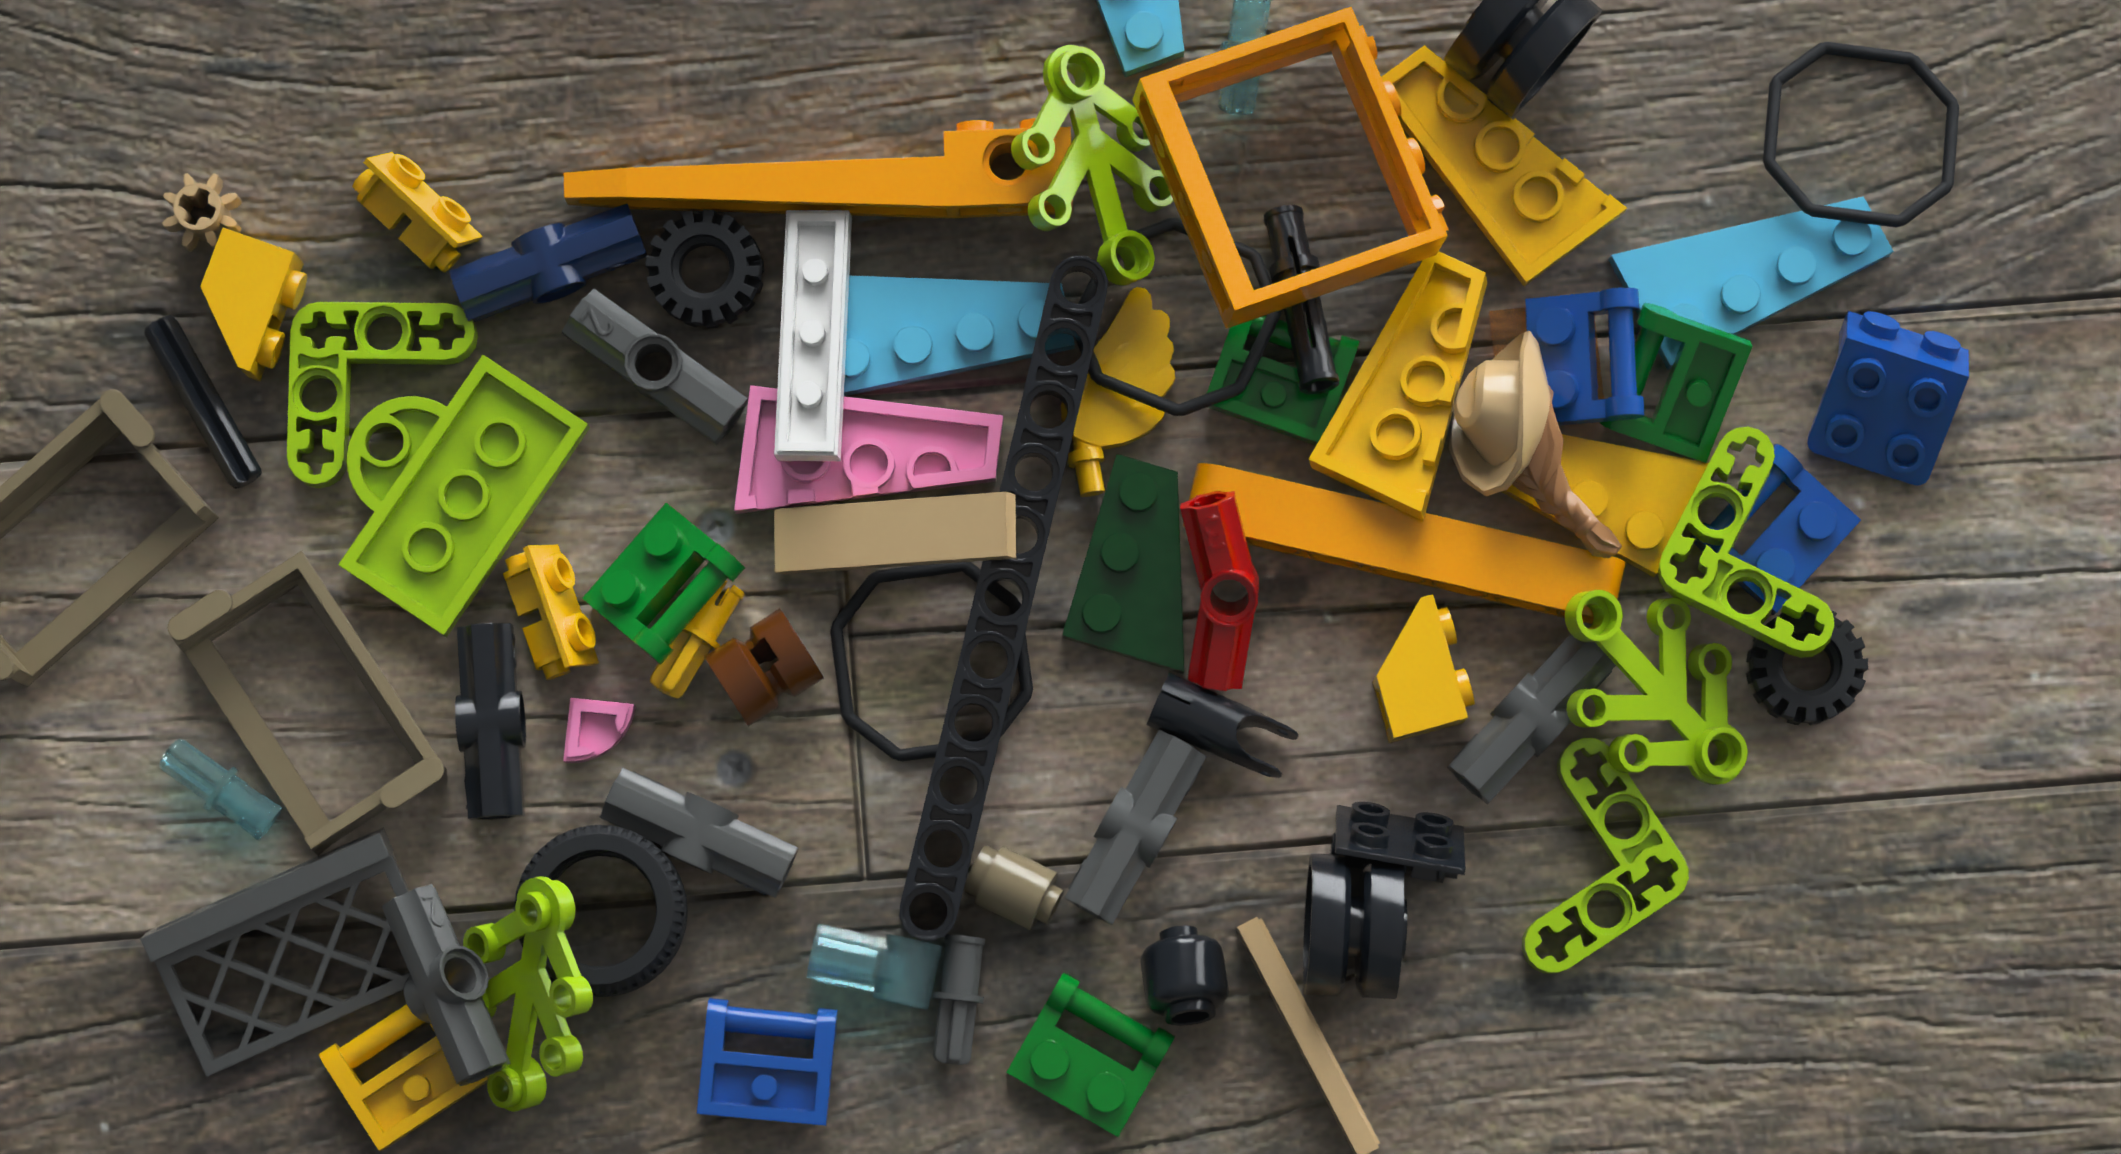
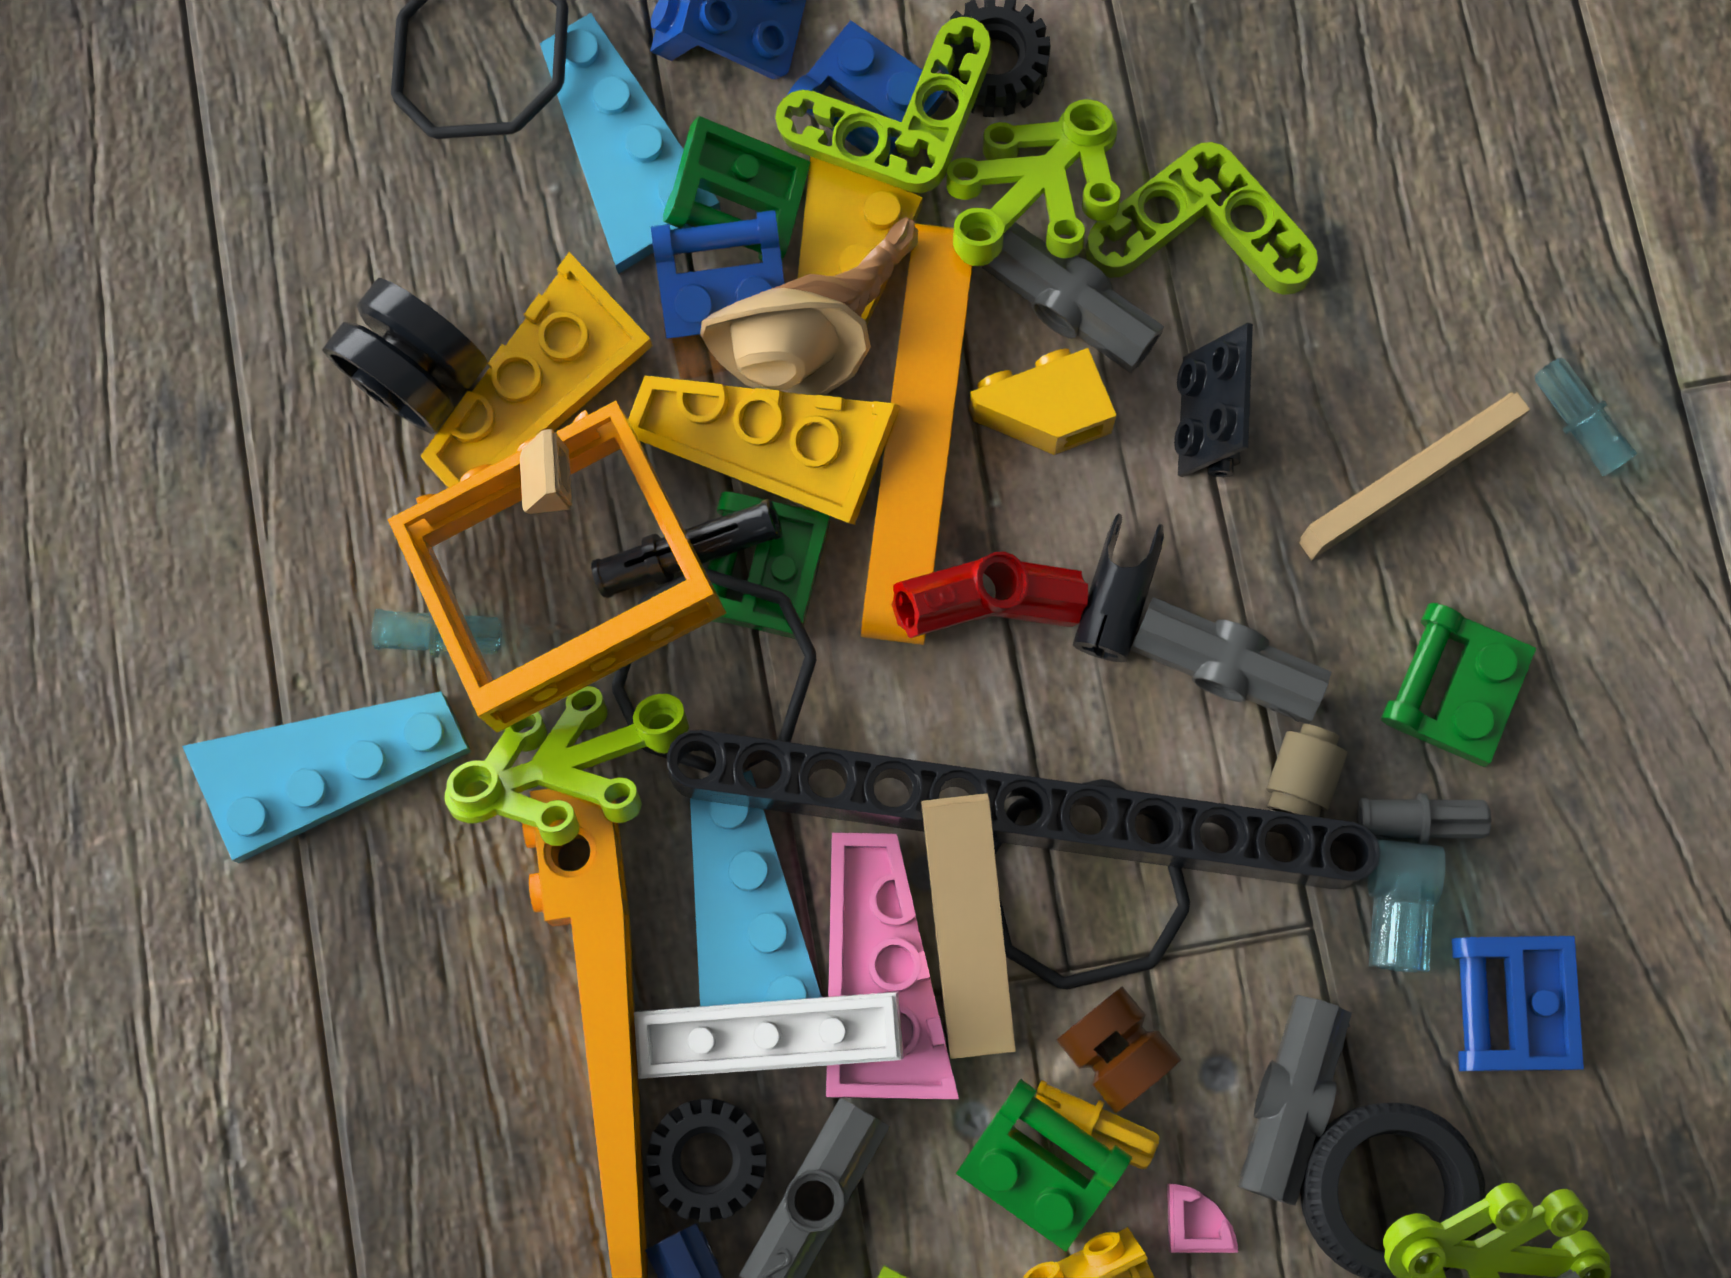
camera: 90 degrees left, 5 degrees down
(1132, 570) = (970, 692): dark green wing -> none
(1136, 353) = (758, 709): yellow animal -> none
(1184, 976) = (1371, 598): black head -> none
(1359, 926) = (1310, 435): black wheel -> none
(1373, 161) = (545, 474): none -> tan slope

